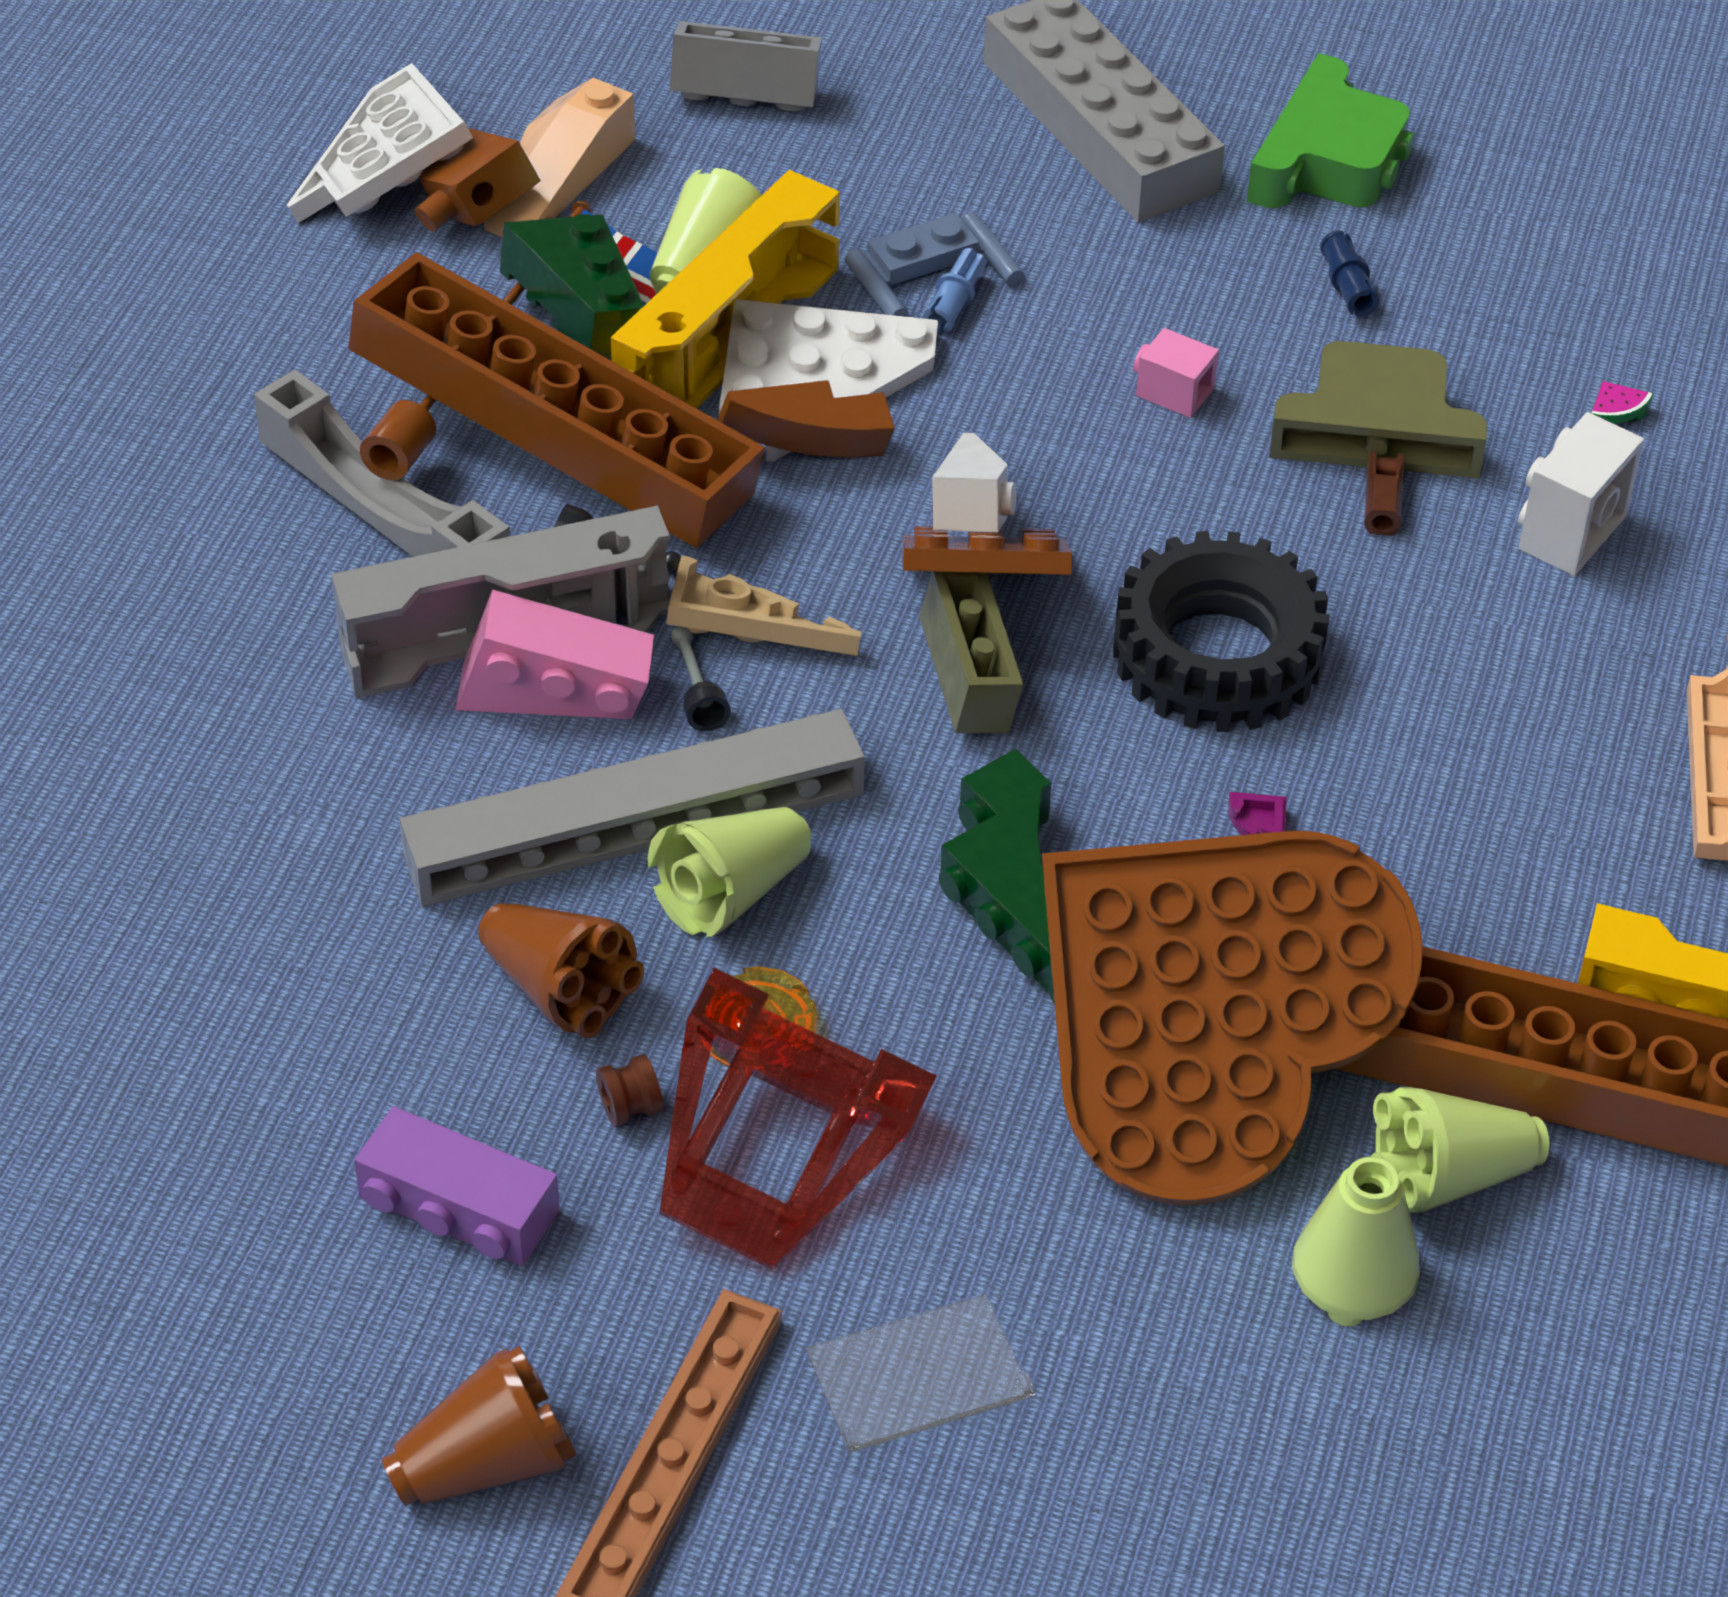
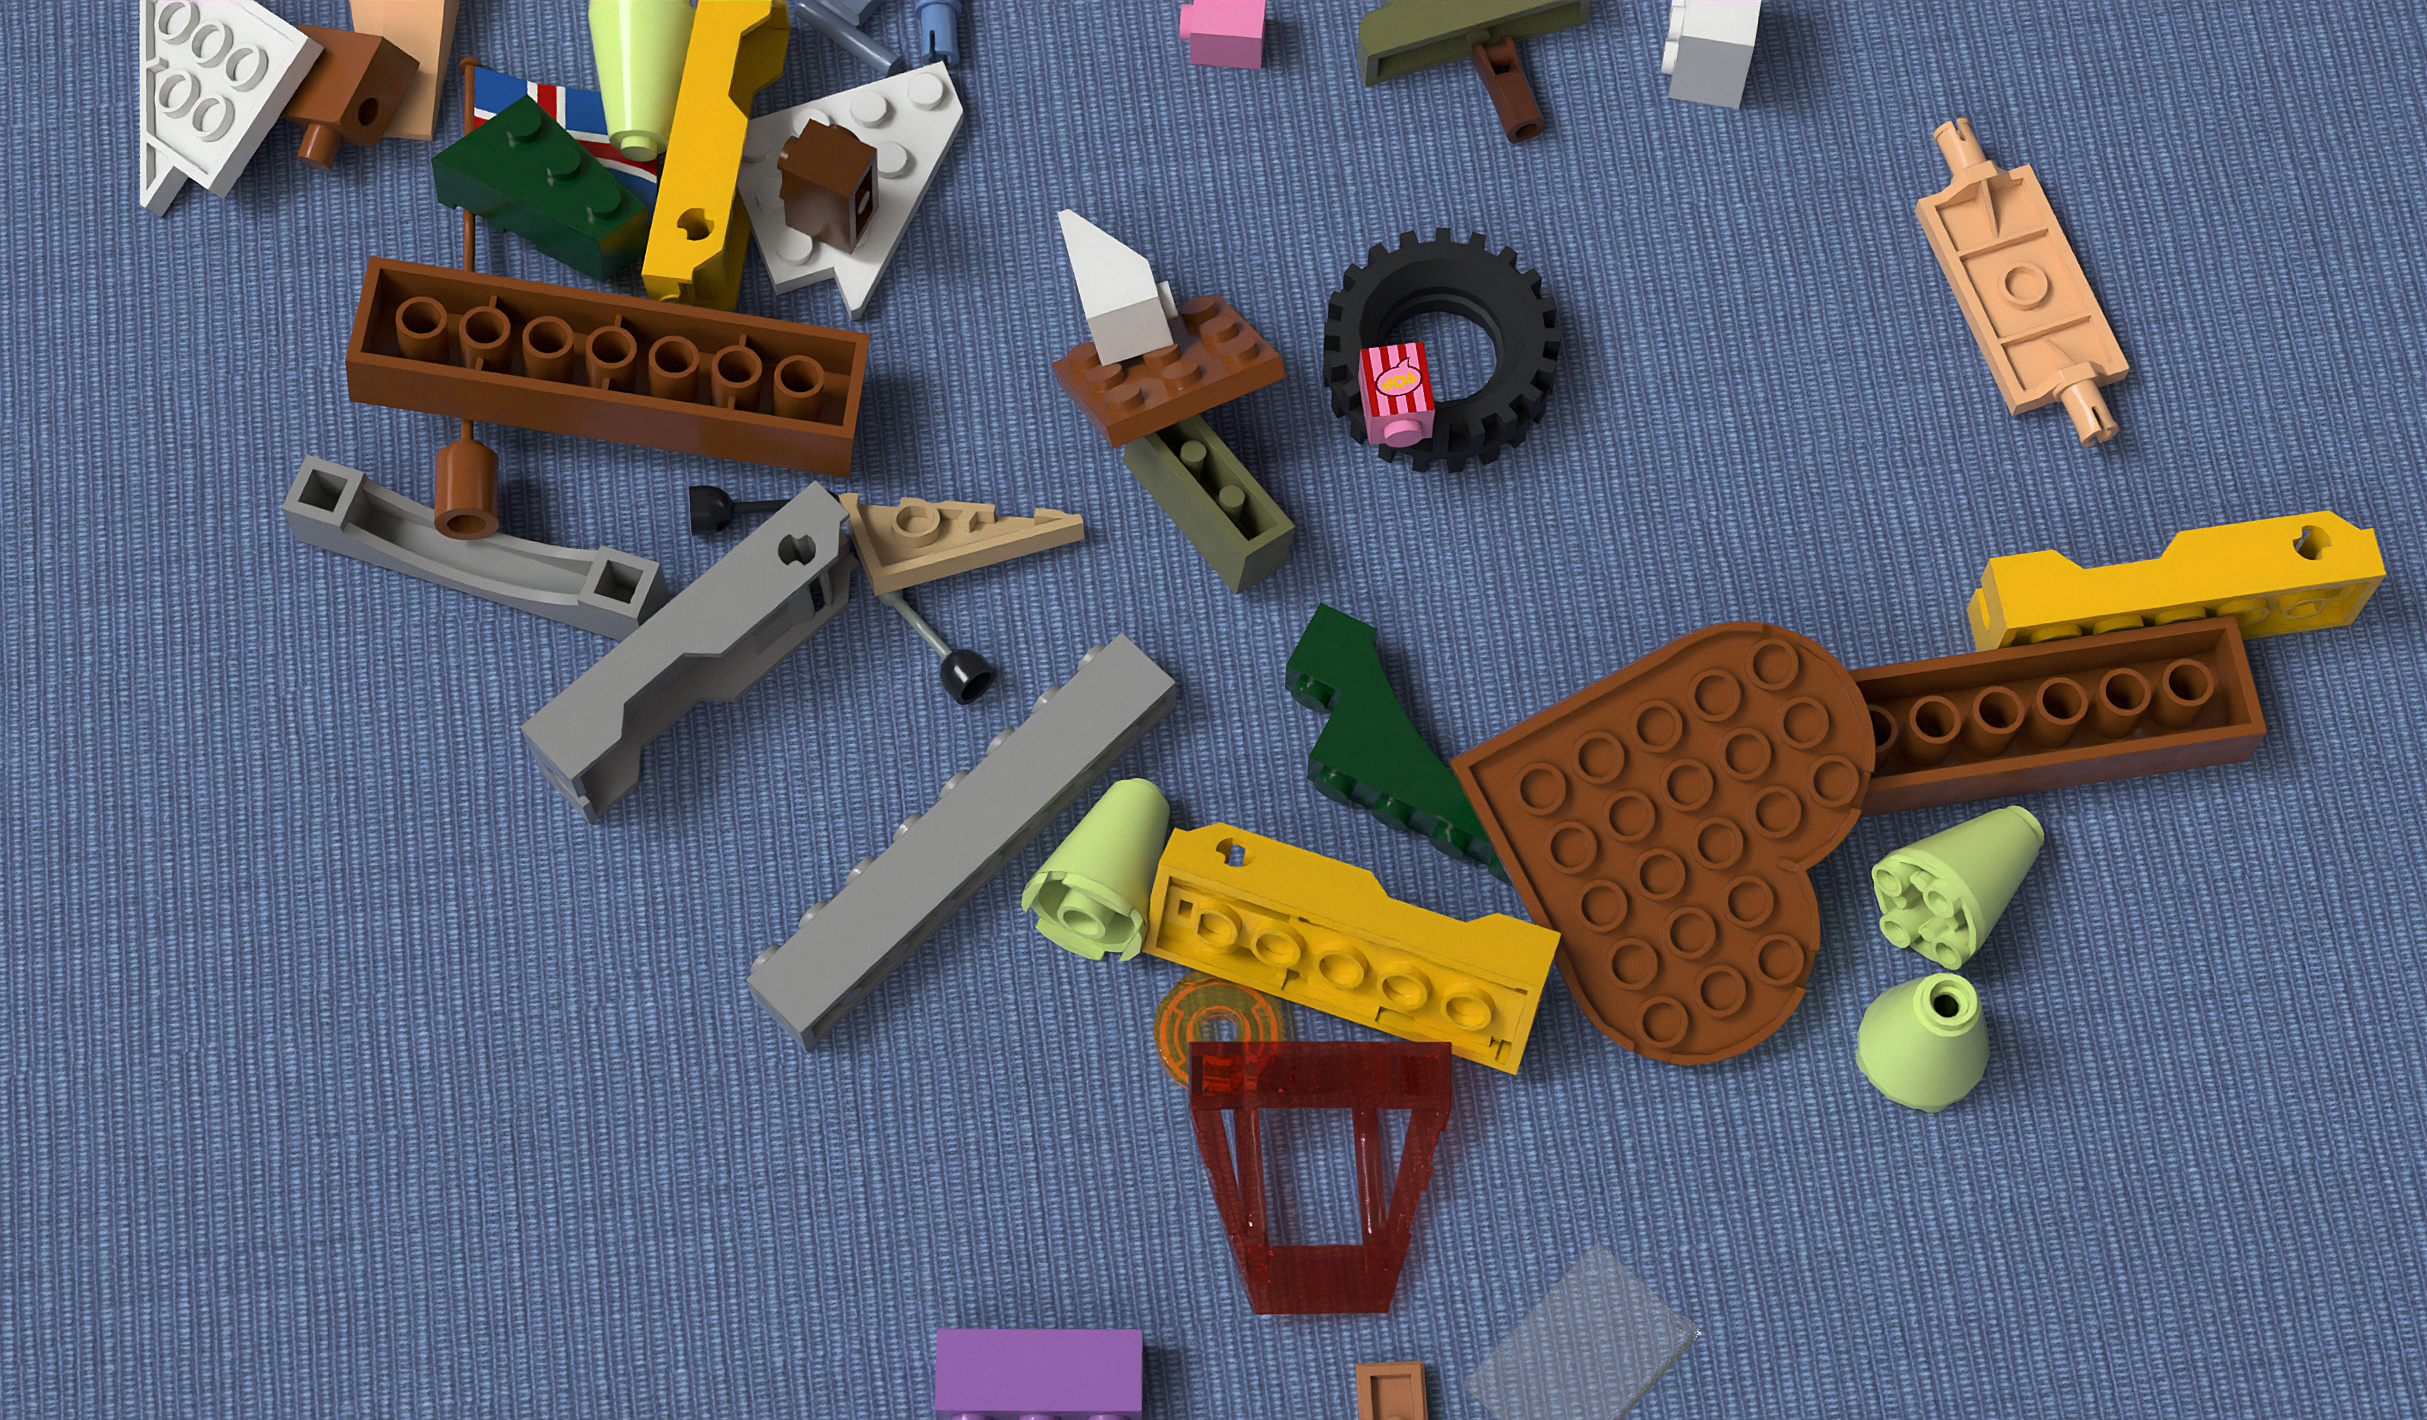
camera: 25 degrees left, 20 degrees up
(552, 662) = (787, 703): bright pink wedge -> none
(564, 962) = (998, 1070): dark orange cone -> none
(629, 1090) = (1146, 1184): copper wheel -> none
(790, 335) = (829, 184): none -> reddish brown brick
(810, 419) = (889, 264): dark orange slope -> none
(892, 981) = (1345, 947): none -> yellow piece
(1155, 619) = (1396, 394): none -> bright pink brick
(1257, 812) = (1582, 559): magenta tile -> none

